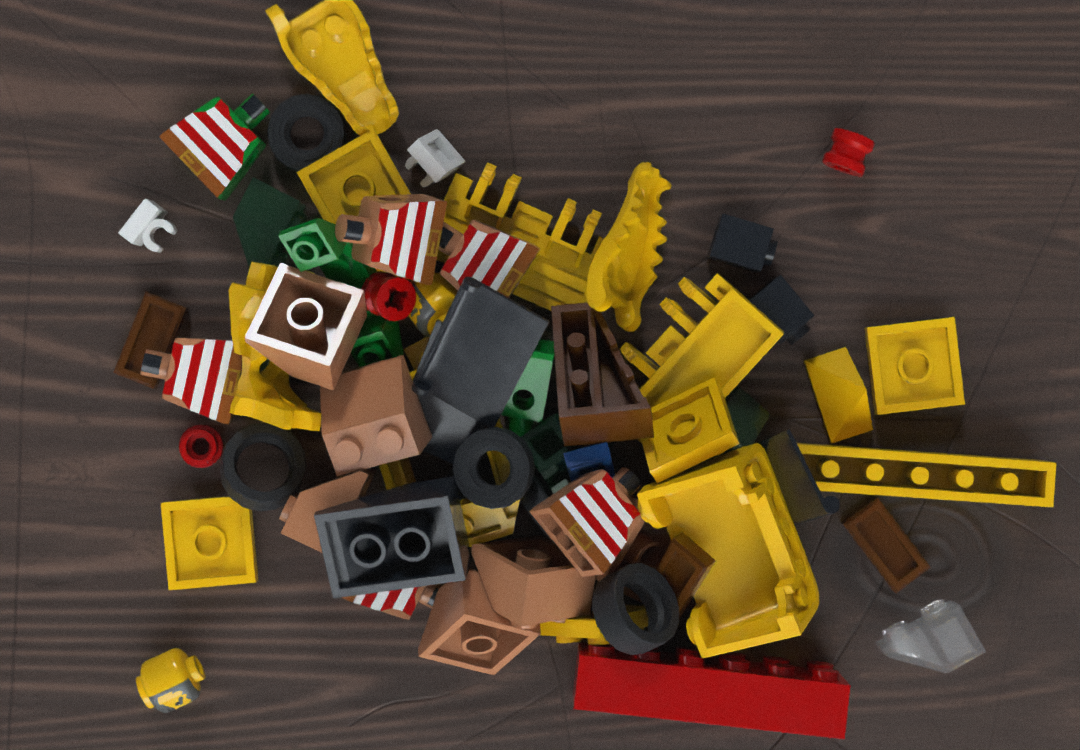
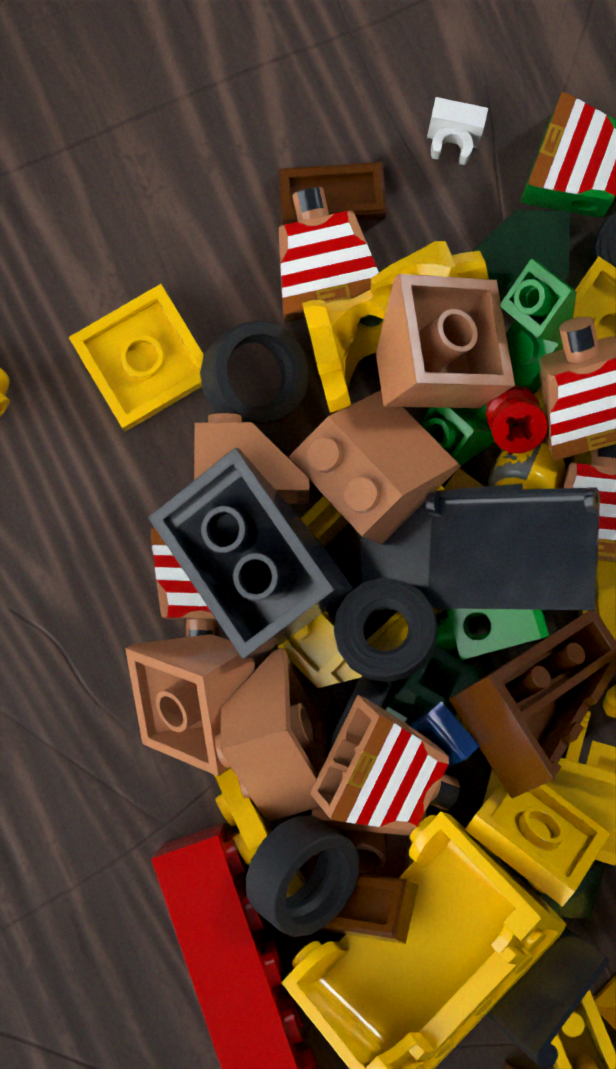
camera: 65 degrees right, 5 degrees down
(188, 450) = (243, 284): red plate -> none

